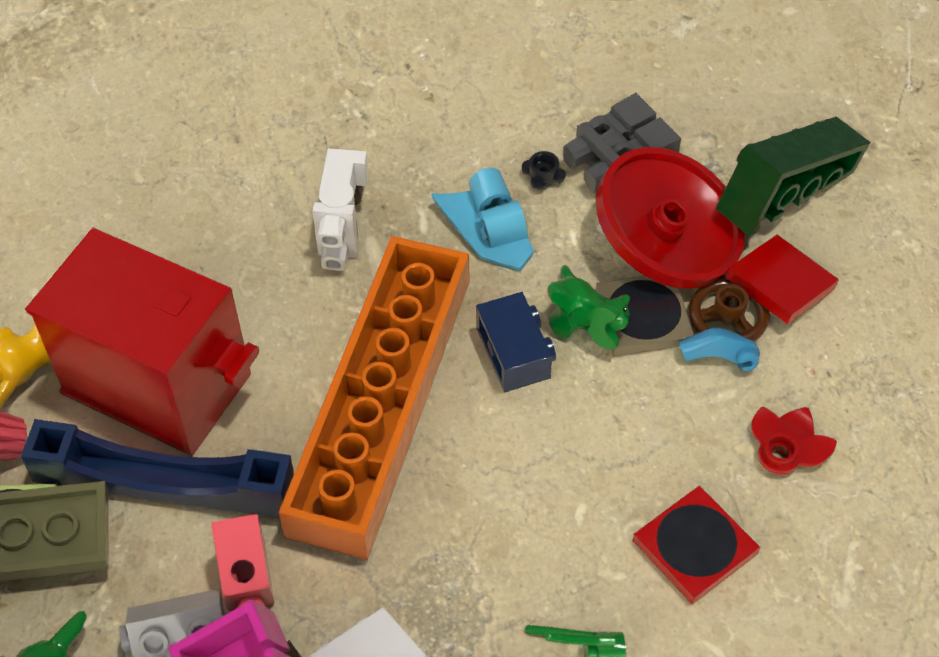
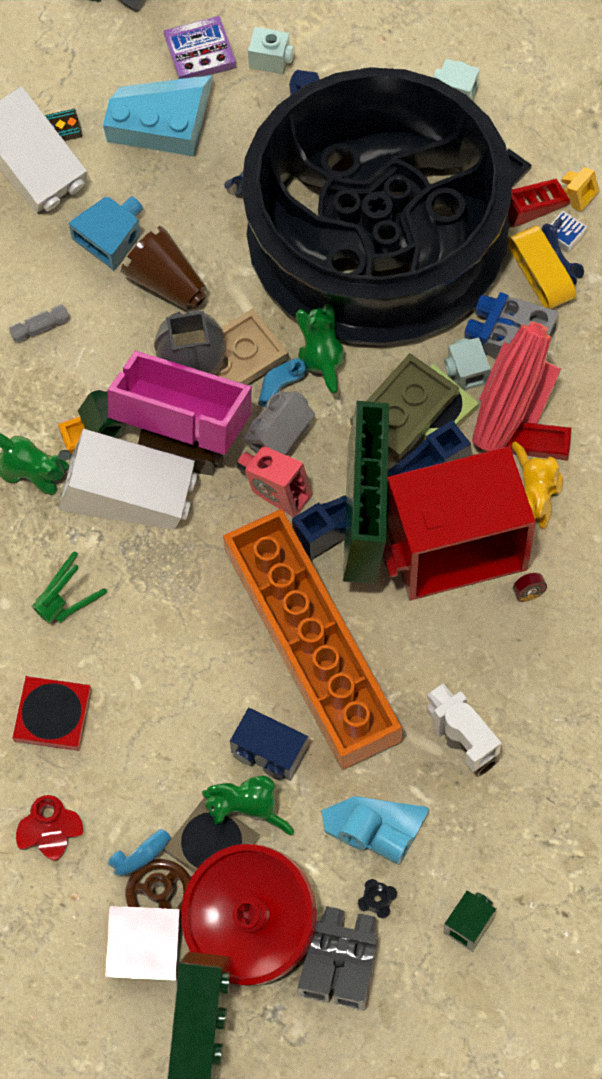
camera: 140 degrees right, 10 degrees up
(188, 427) = (366, 492): none -> dark green brick
(487, 98) = (470, 919): none -> dark green brick

